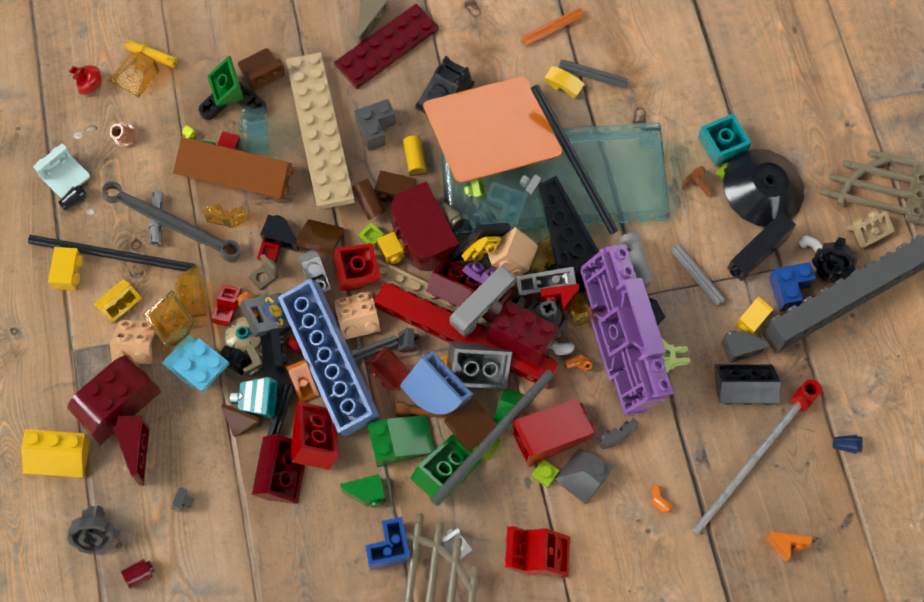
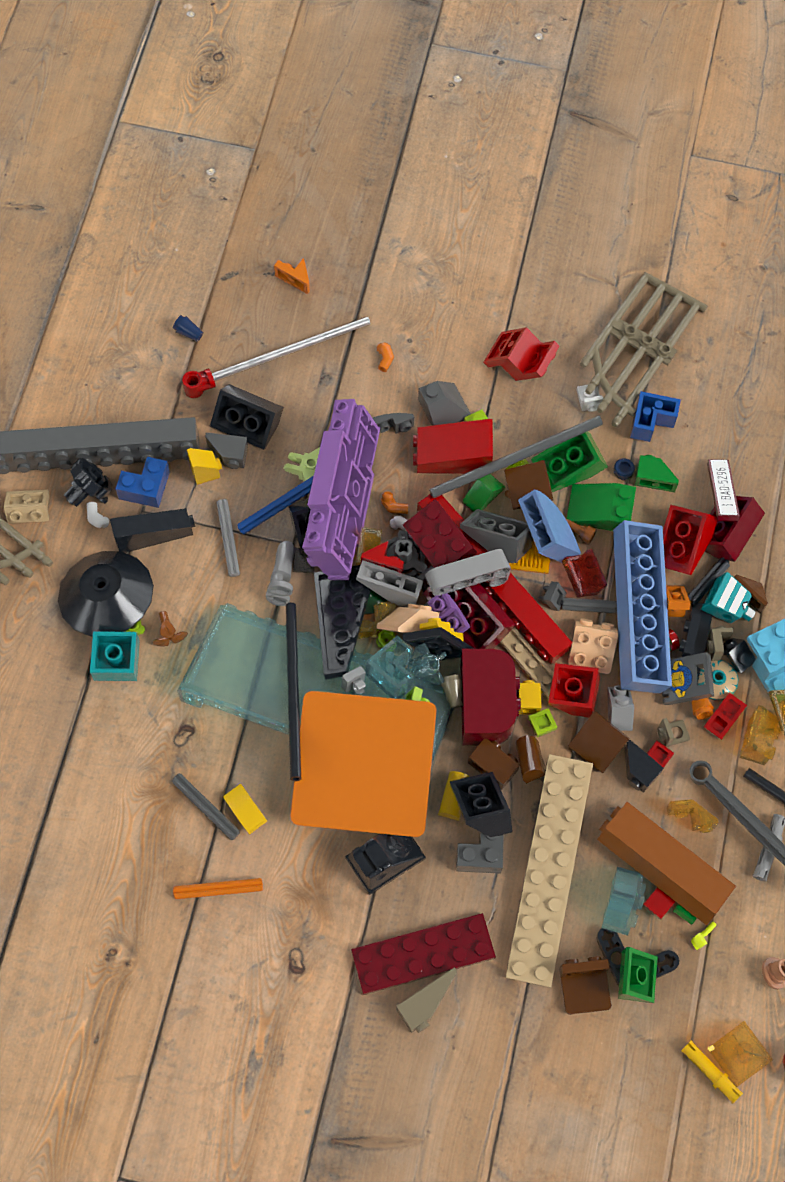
camera: 155 degrees left, 0 degrees up
(297, 497) = (723, 490): none -> tile
(389, 138) = (483, 804): none -> black slope
(395, 488) = (623, 469): none -> dark blue tile
(675, 306) = (275, 506): none -> blue axle

